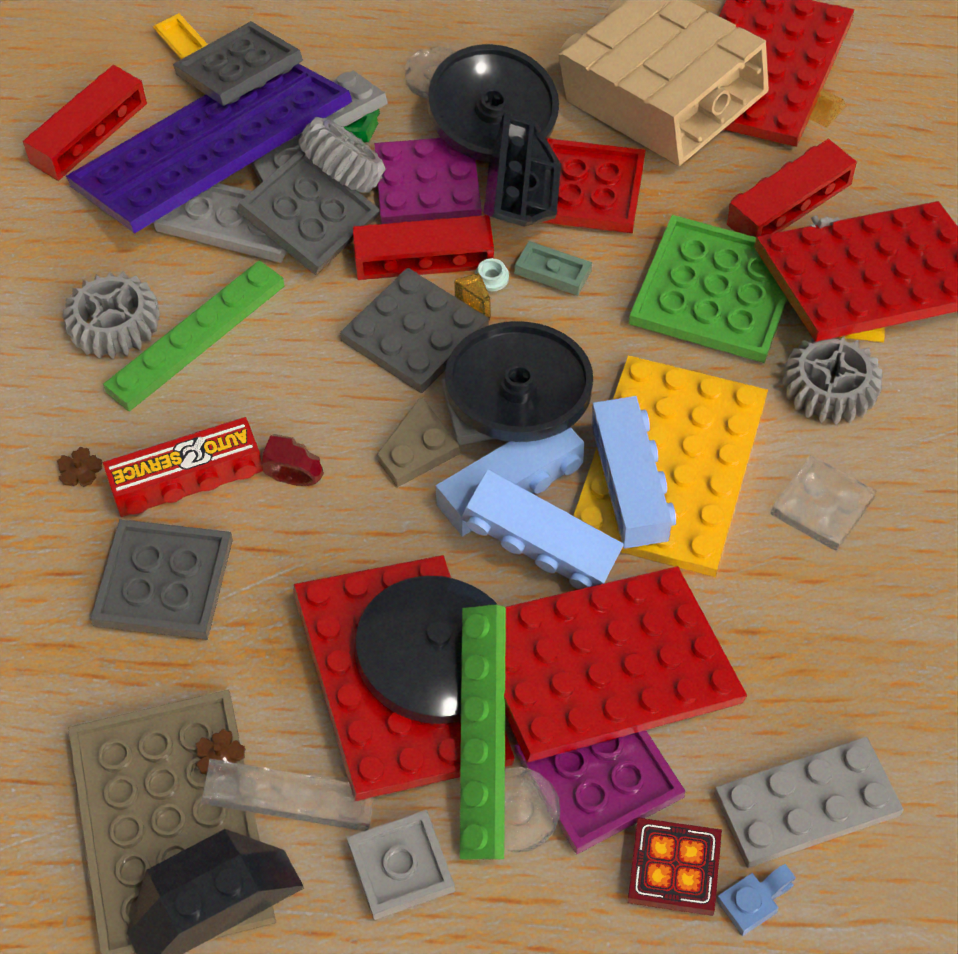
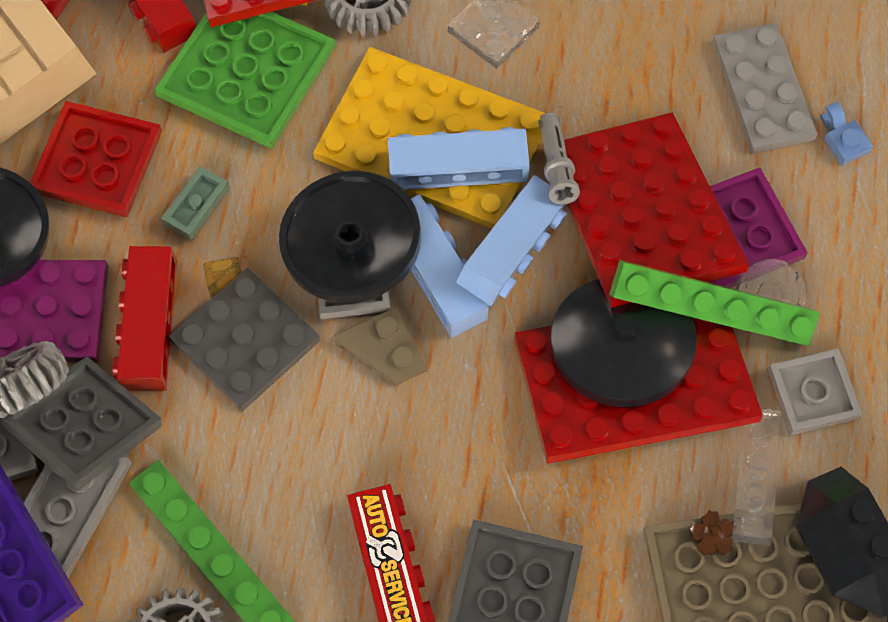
camera: 85 degrees left, 10 degrees up
(290, 462) = (394, 460): dark red rock -> none
(493, 273) = (189, 252): light aqua plate -> none
(522, 174) = (89, 212): black wedge -> none
(635, 563) = (559, 168): none -> light grey pin
(675, 866) = (820, 186): tile -> none

